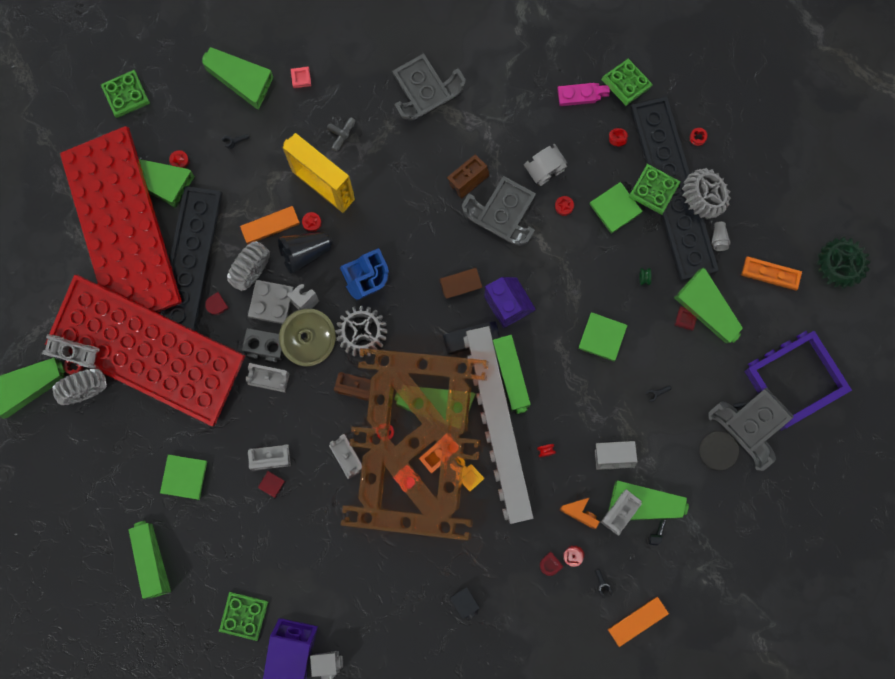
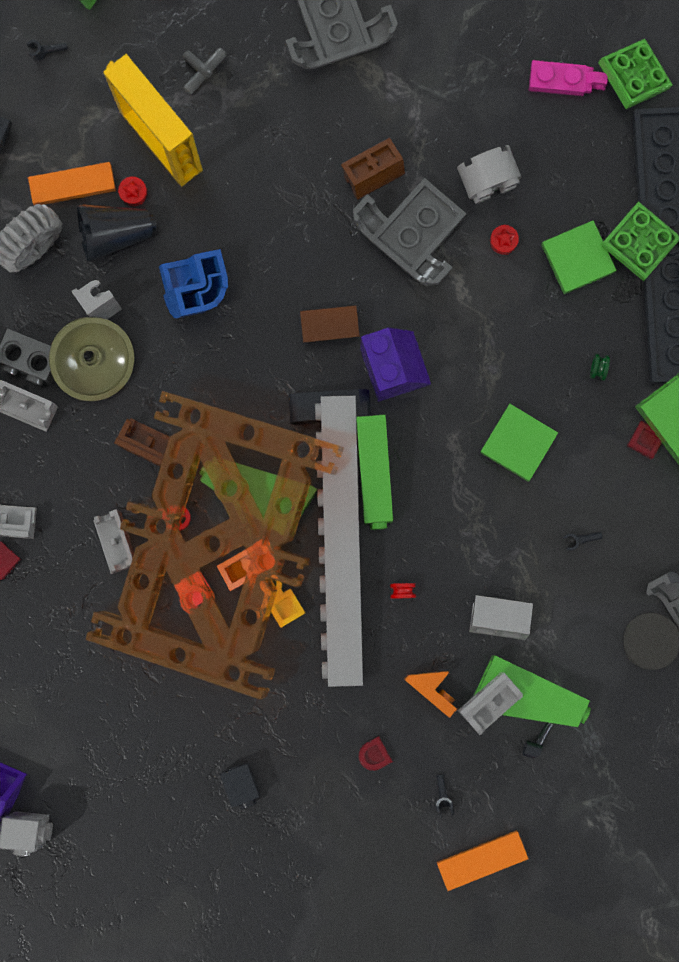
camera: 10 degrees right, 5 degrees up
(270, 302) = (49, 296): light grey plate -> none
(347, 321) = (180, 356): light grey gear -> none
(574, 556) = (410, 749): tile -> none
(618, 137) = (604, 153): red tile -> none

